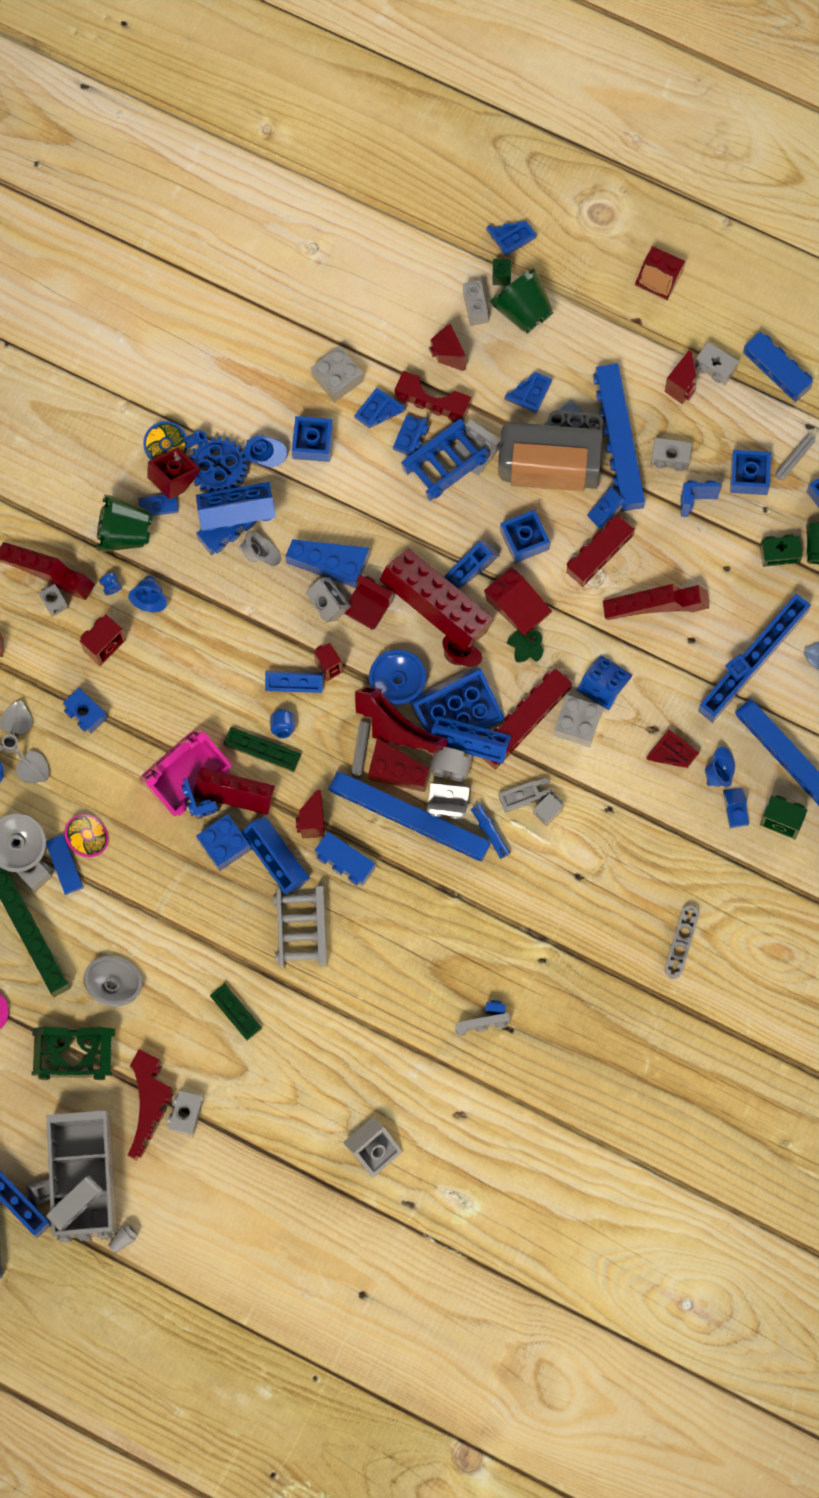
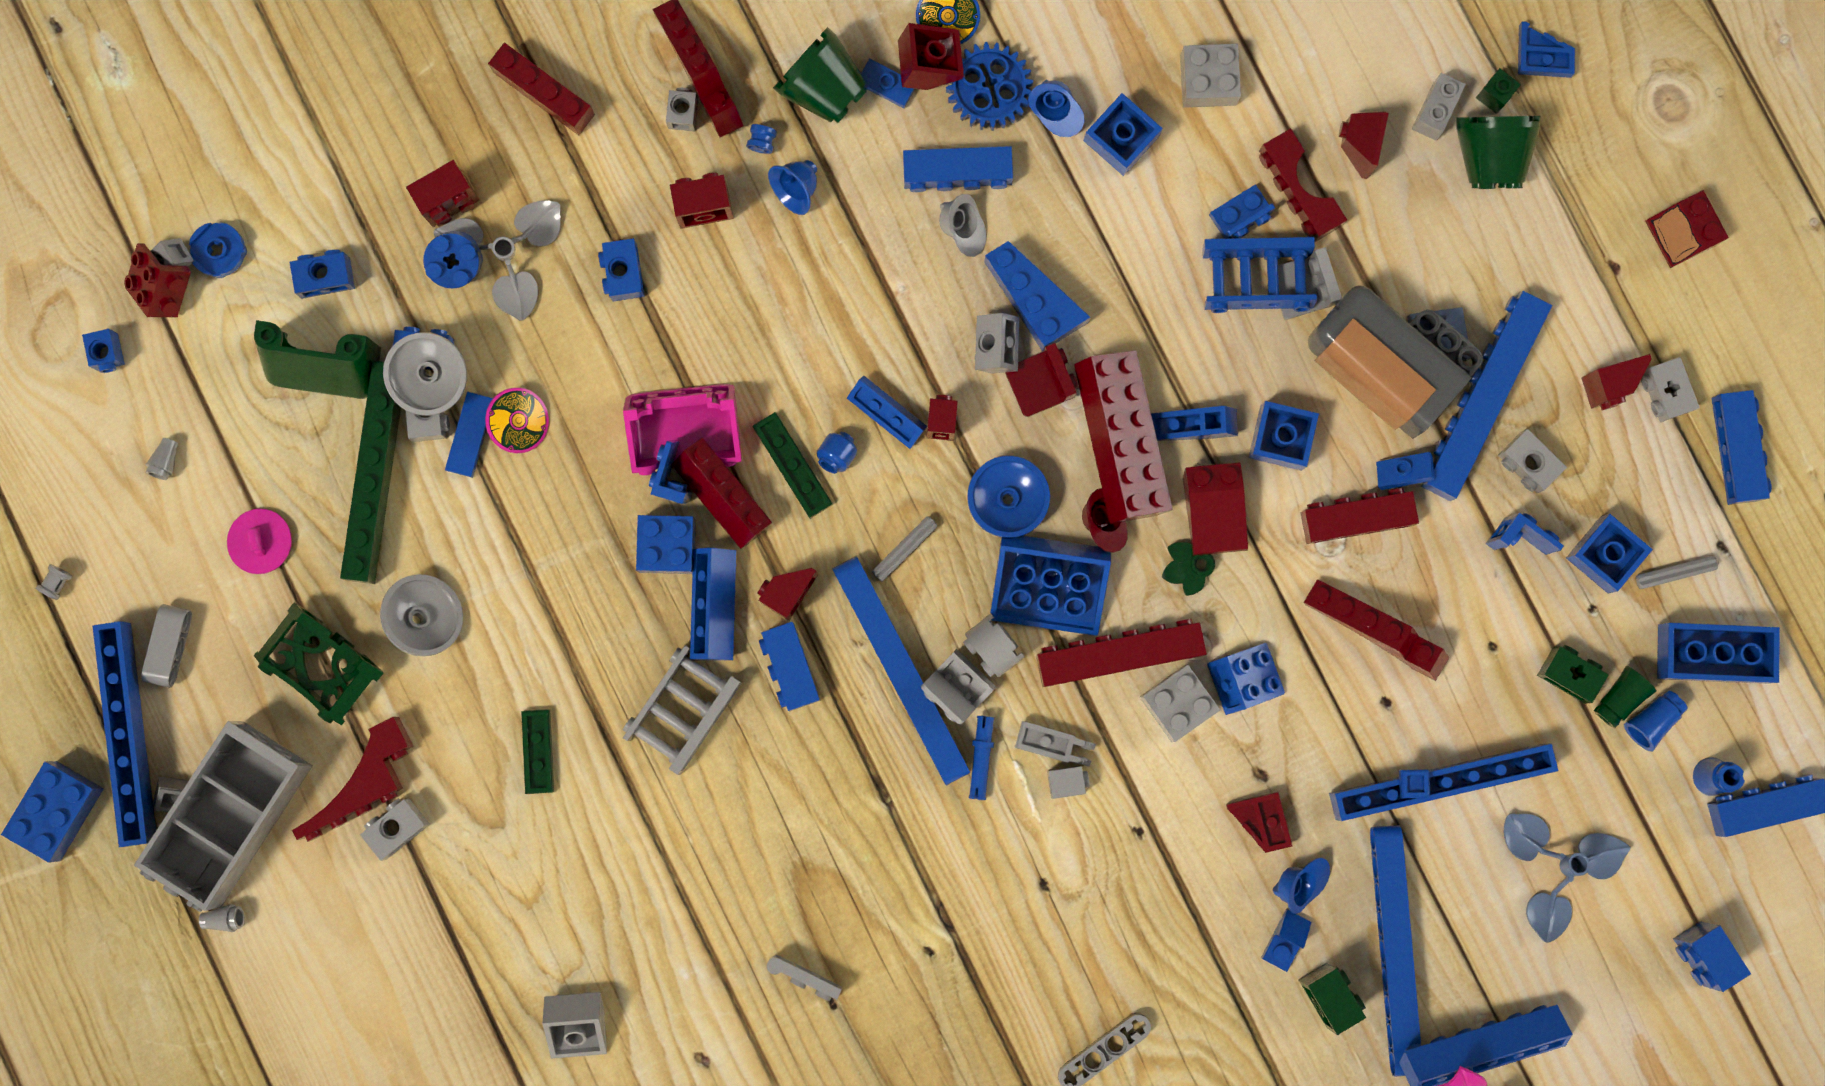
camera: 30 degrees right, 10 degrees up
(74, 1203) = (181, 850): light grey beam -> none
(197, 437) = (989, 35): blue pin -> none
(235, 506) = (970, 152): slope -> none
(378, 409) = (1227, 153): blue wing -> none
(391, 725) = (958, 552): dark red arch -> none
(397, 768) = (928, 604): dark red wedge -> none
(470, 742) = (1032, 637): blue fence -> none
(495, 1007) = (832, 969): blue plate -> none
(531, 392) = (1421, 264): blue wing -> none

